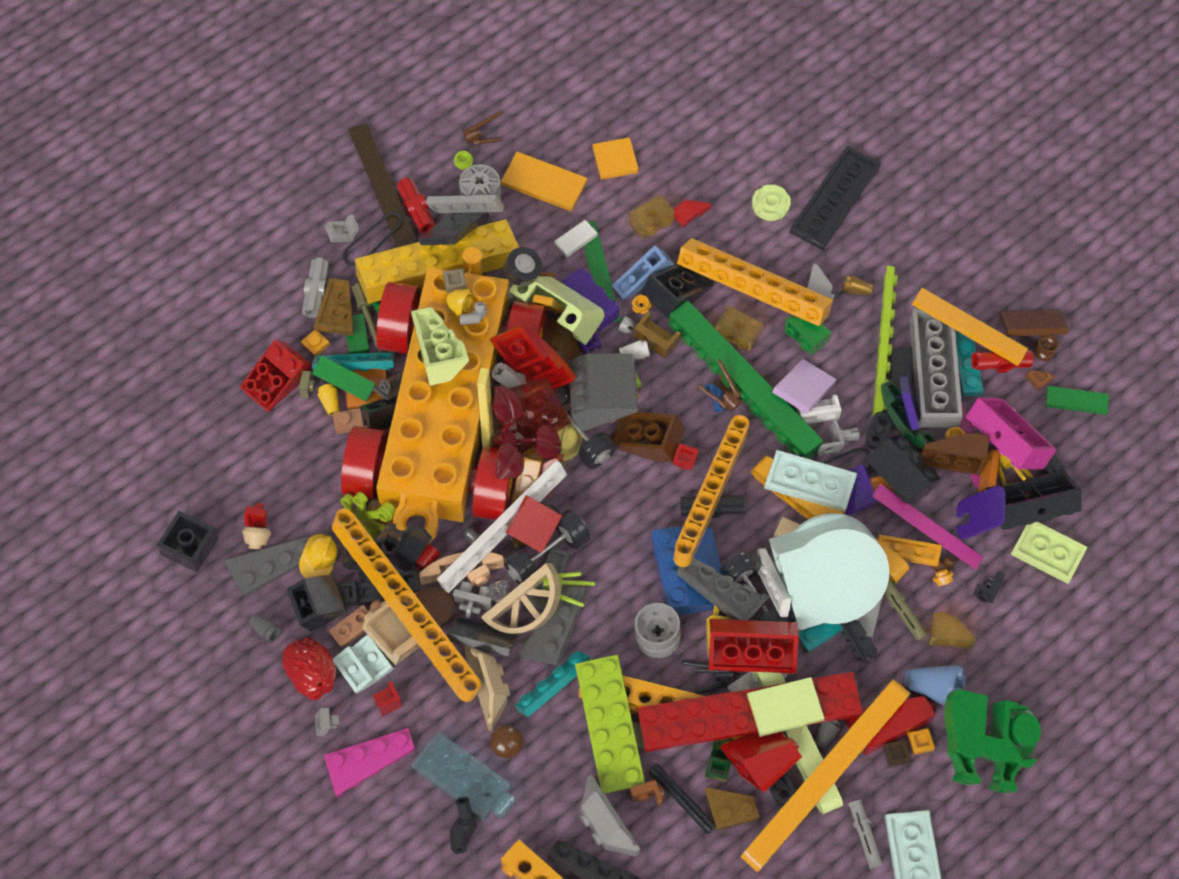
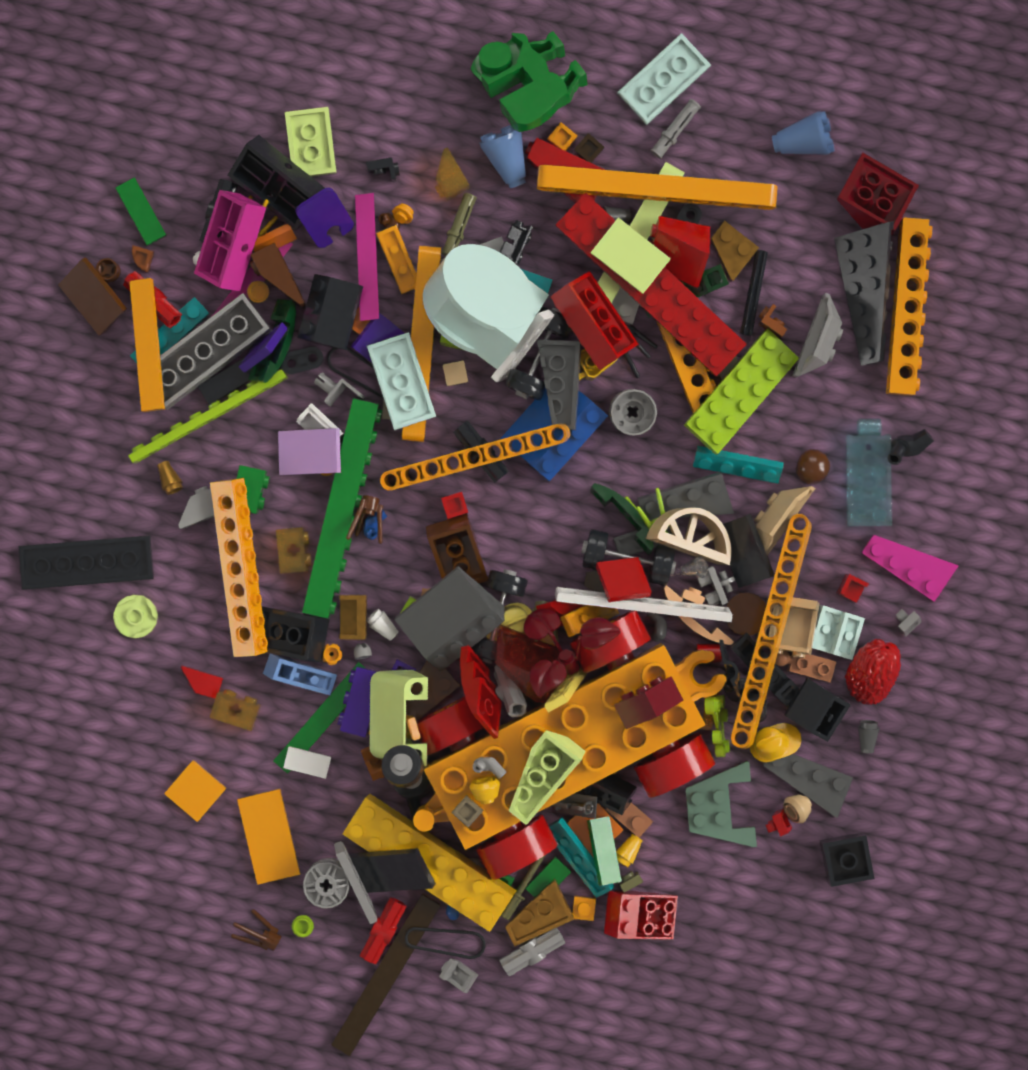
camera: 130 degrees left, 25 degrees up
(309, 478) = (710, 806): none -> sand green wing
(427, 446) = (648, 701): none -> dark red brick
(606, 568) = (606, 495): none -> dark green slope

